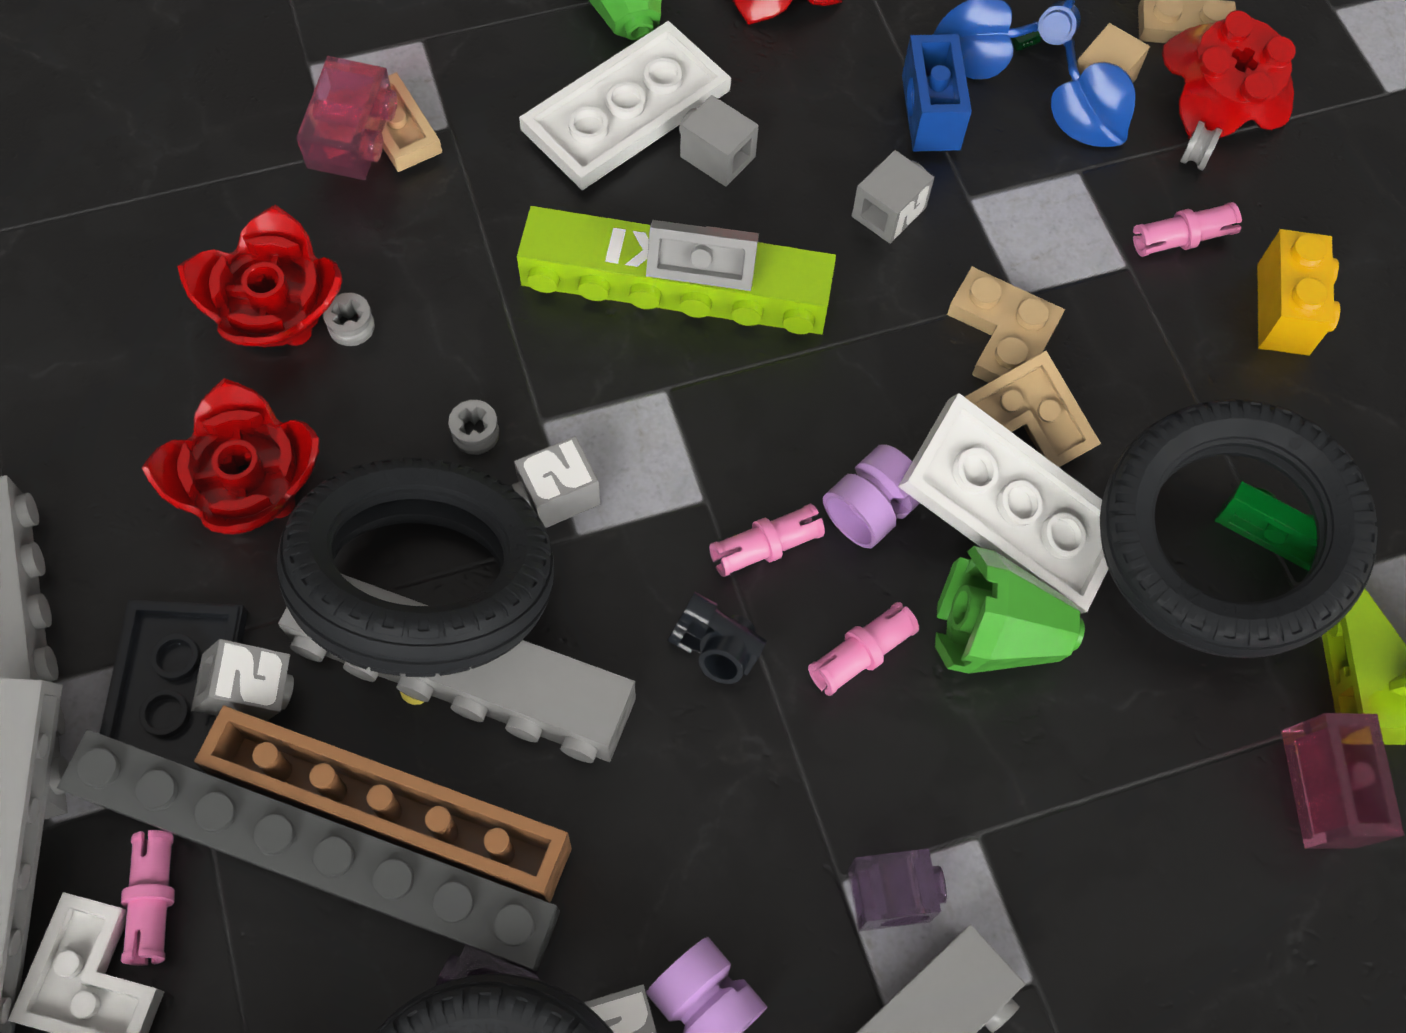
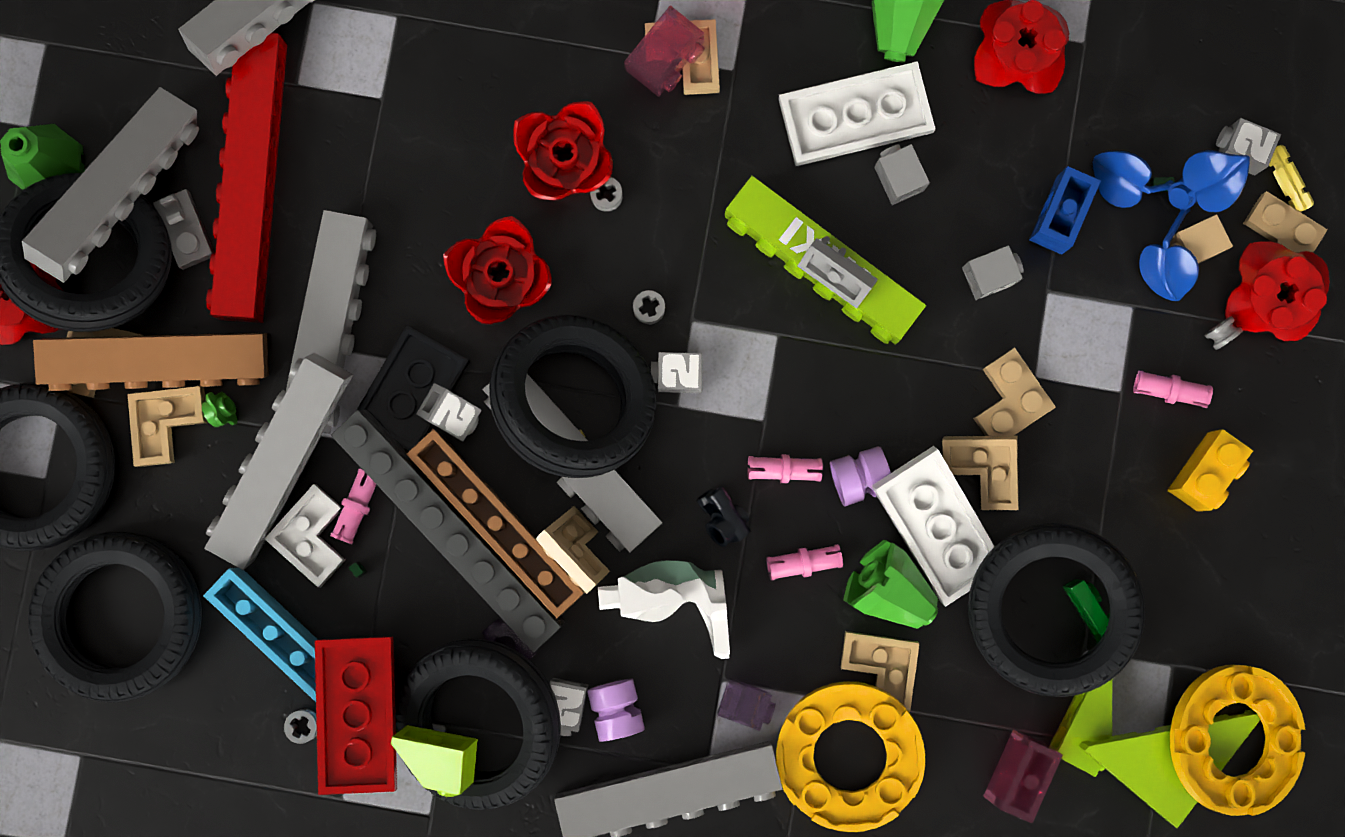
camera: 30 degrees right, 20 degrees up
(190, 996) = (357, 569): none -> dark green piece
(515, 774) = (566, 544): none -> tan plate
(687, 768) = (662, 587): none -> white hips
(1067, 723) = (888, 657): none -> tan plate
(1179, 882) = (847, 809): none -> yellow plate

